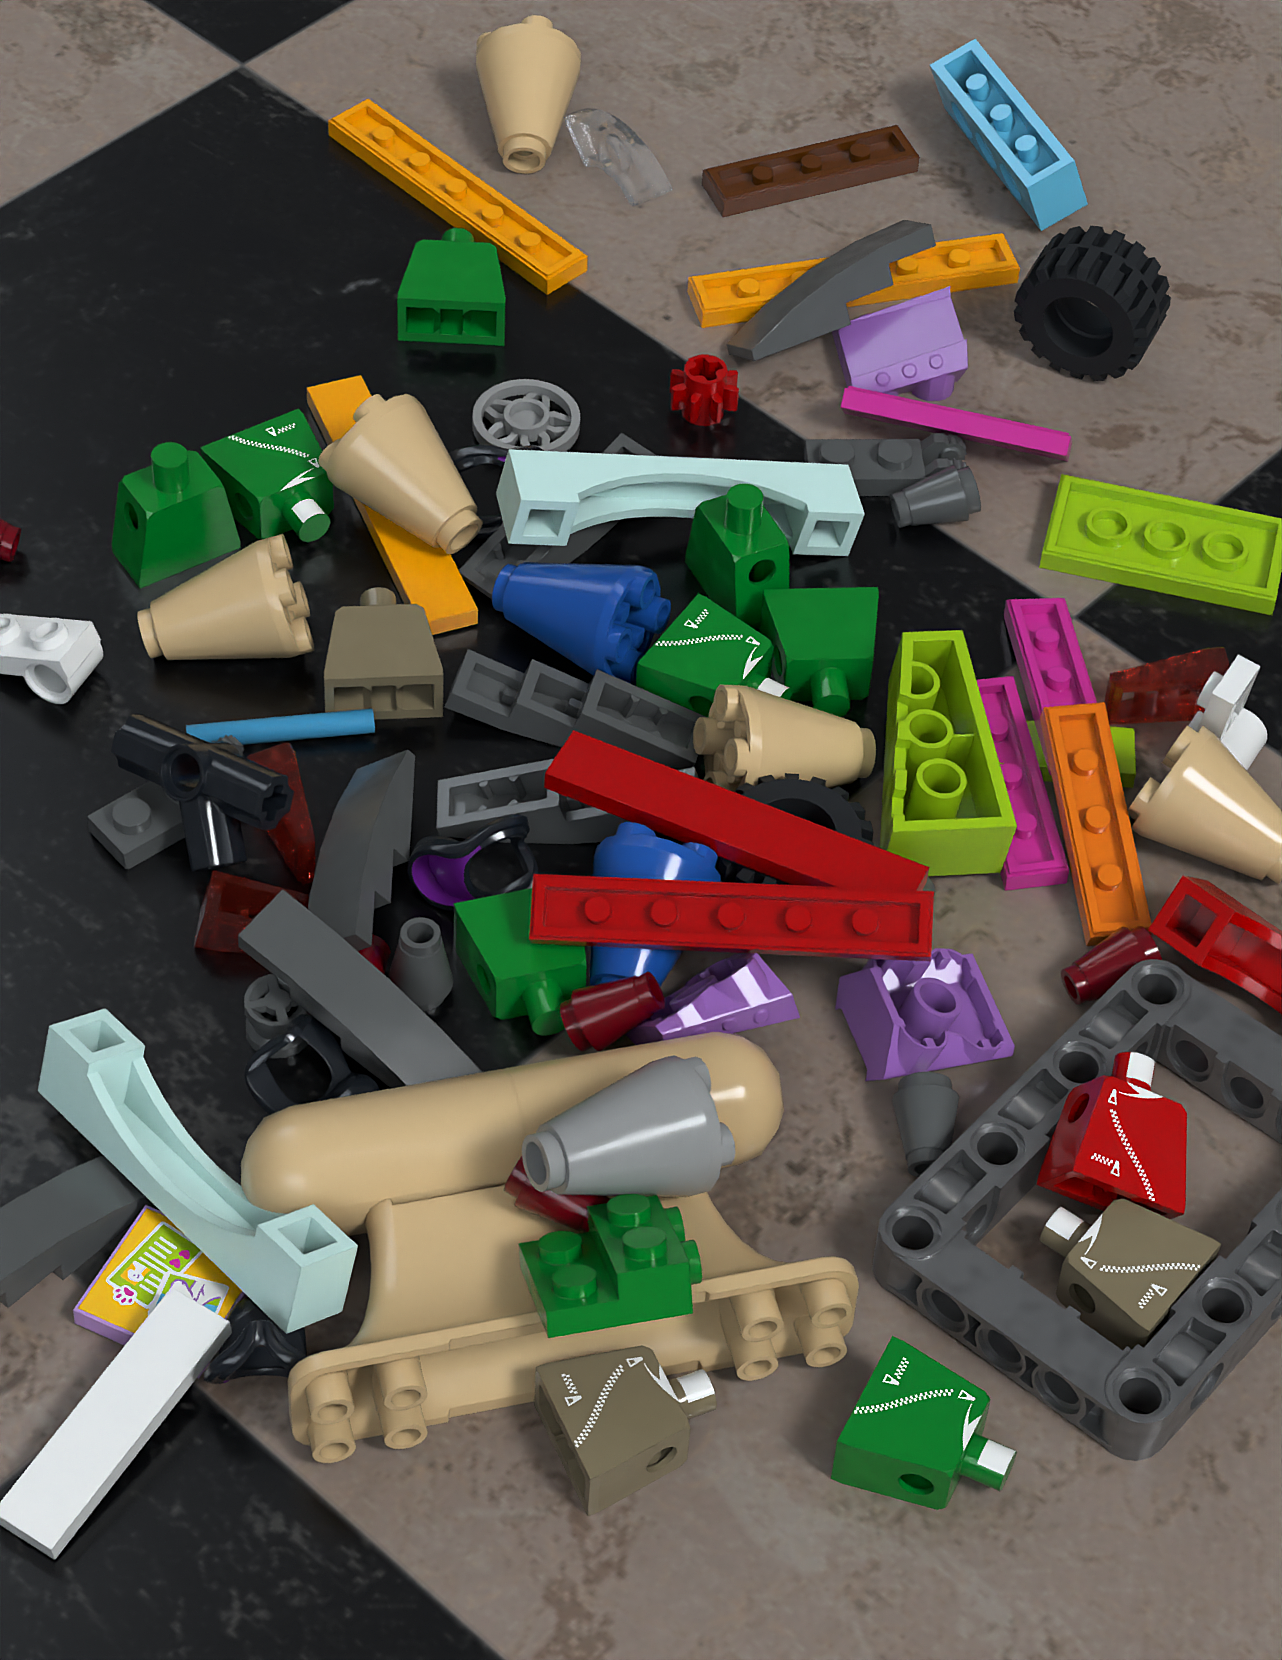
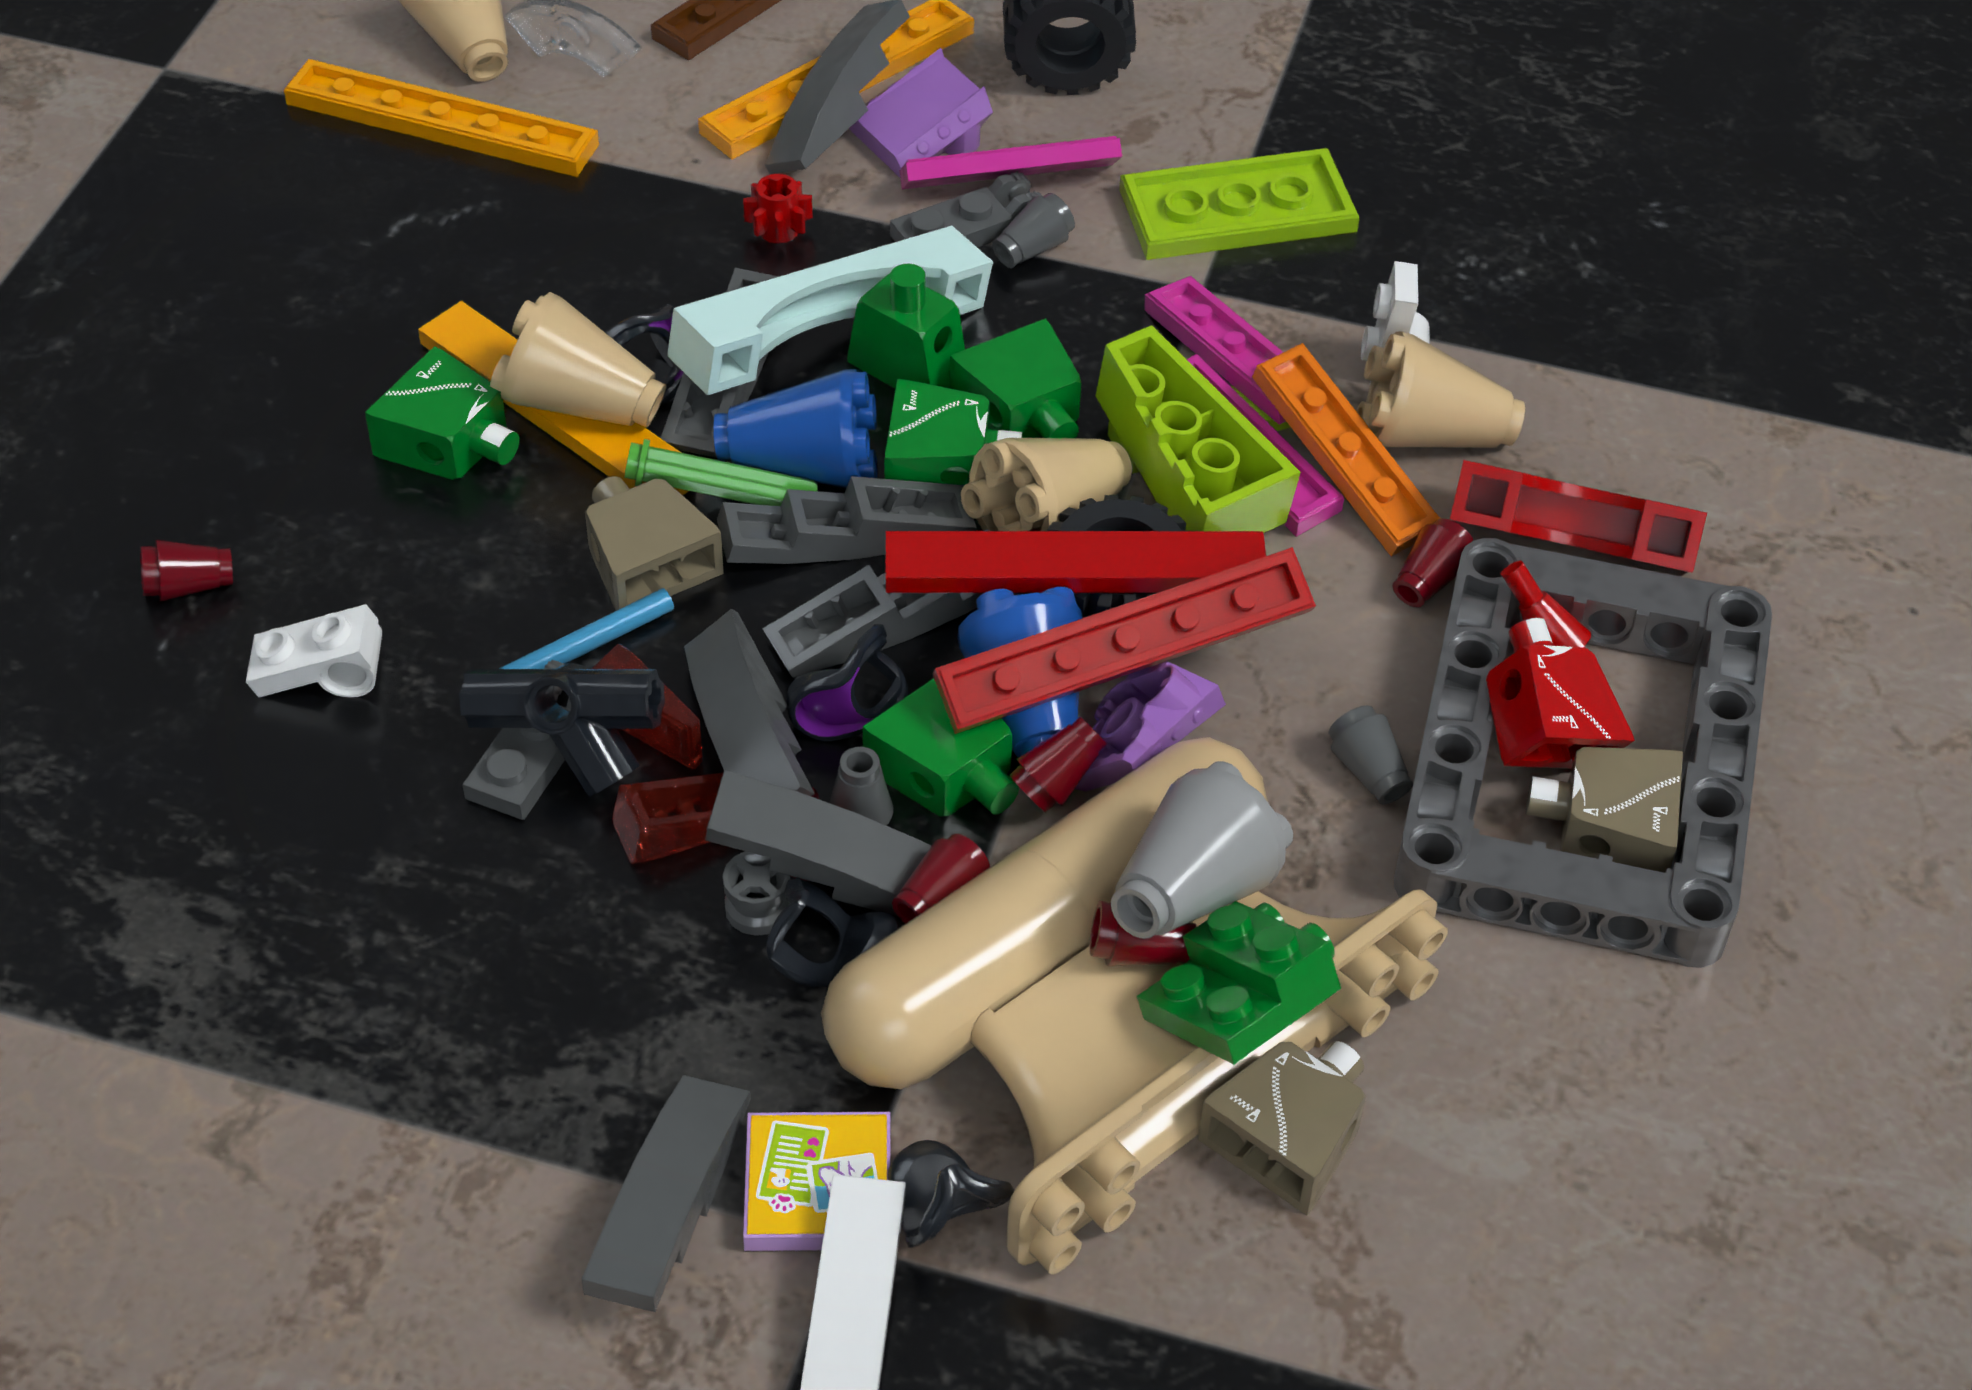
camera: 25 degrees left, 0 degrees up
(171, 516) = (373, 485): green torso -> none
(233, 610) = (486, 546): tan cone -> none
(285, 1263) = (652, 1023): light aqua arch -> none
(435, 1060) = (942, 871): none -> dark red cone
(452, 292) = (503, 199): green torso -> none
(475, 621) = (711, 476): none -> bright green axle
(526, 418) = (632, 286): light grey wheel -> none
(918, 1432) = (1541, 1015): green torso -> none
(922, 1015) = (1305, 669): medium lavender slope -> none
(1176, 683) = (1332, 315): clear red slope -> none
(1178, 1066) = (1534, 603): none -> red cone

